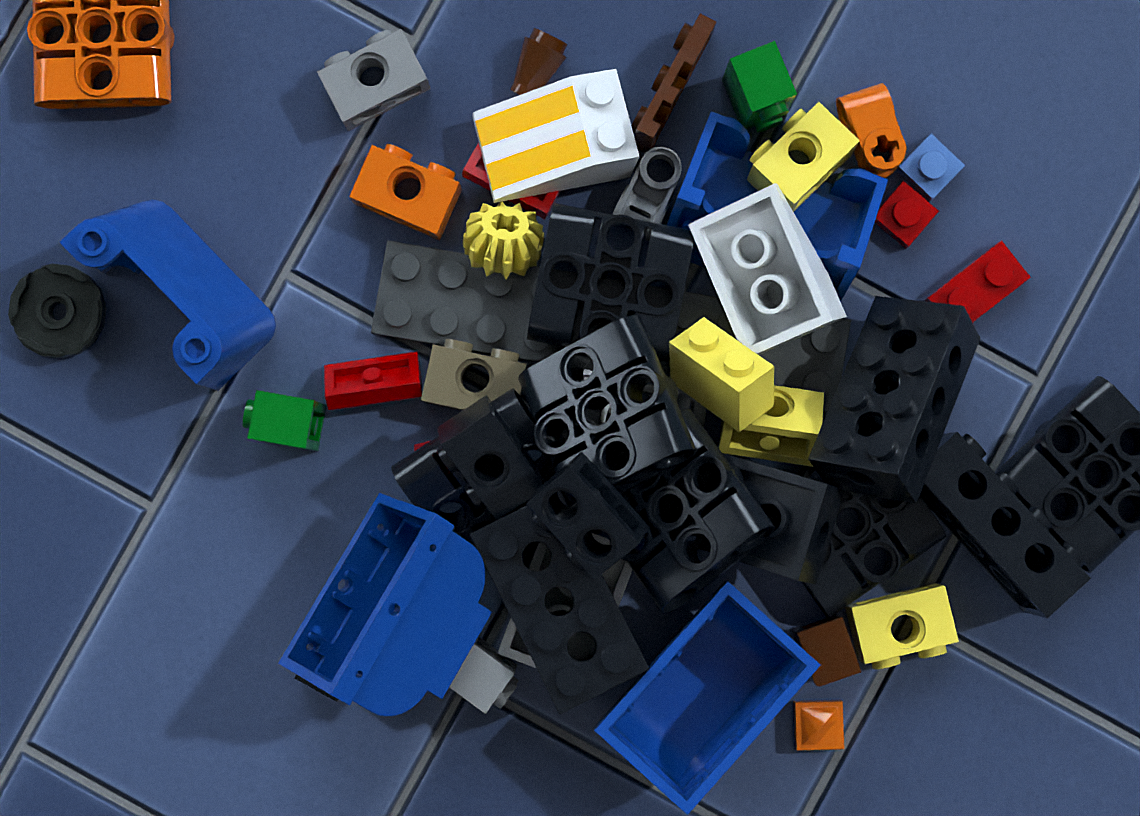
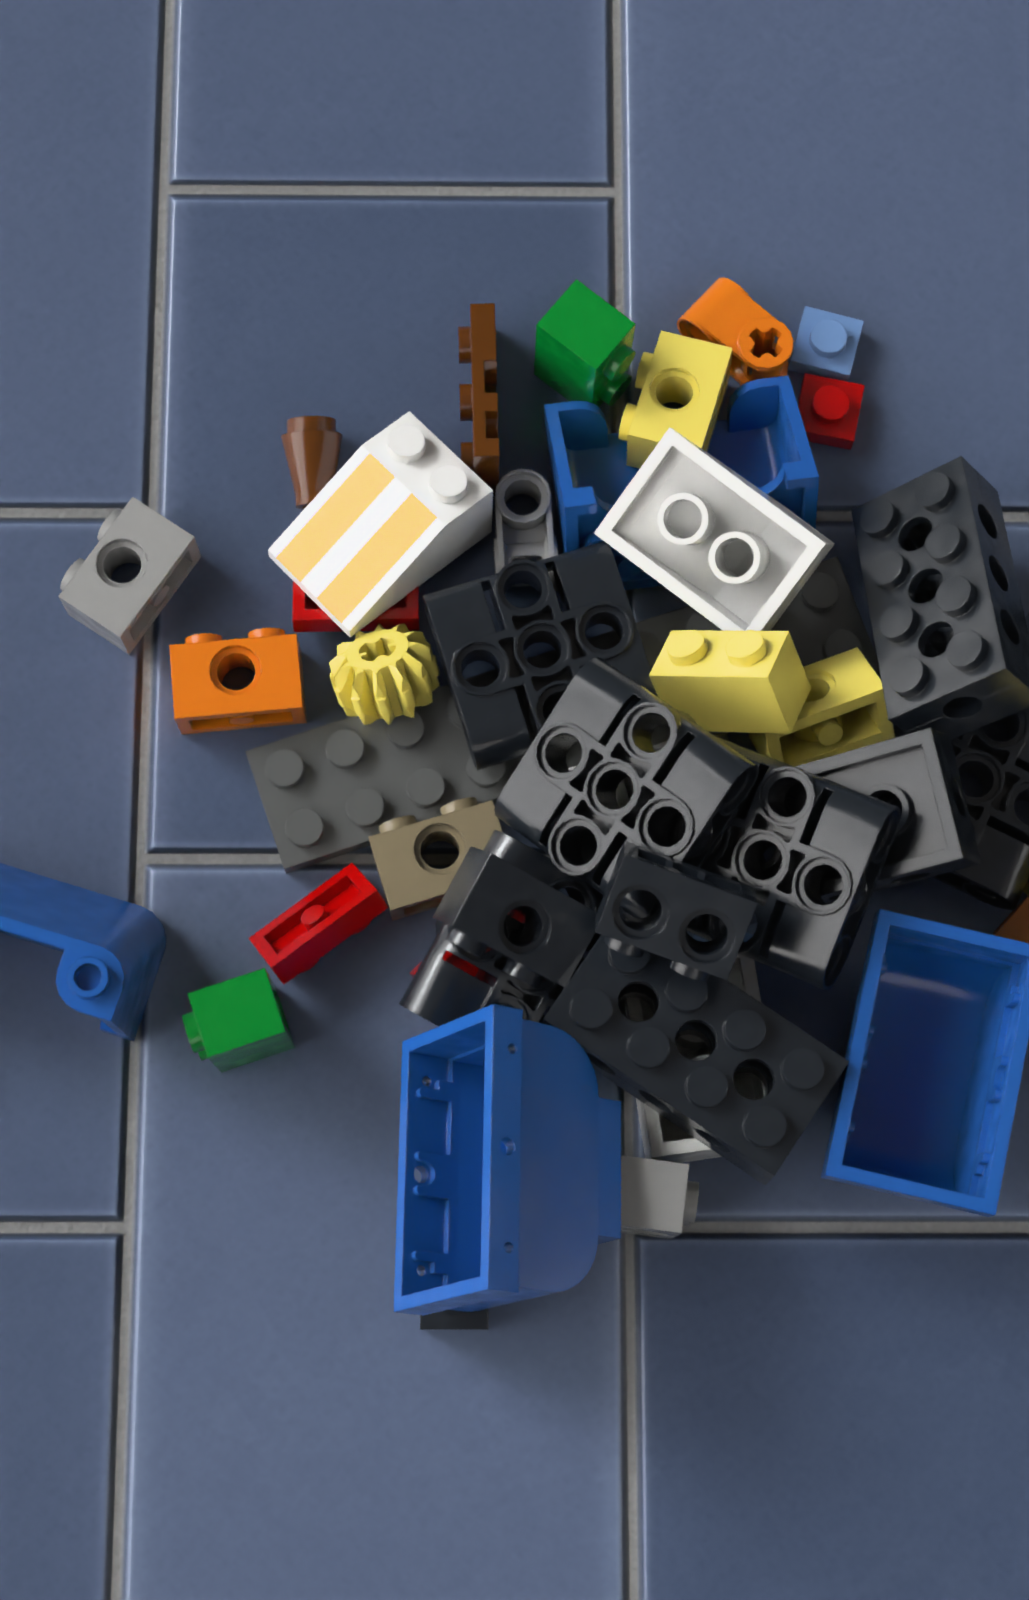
camera: 30 degrees left, 10 degrees down
(983, 282) = (963, 428): red plate -> none

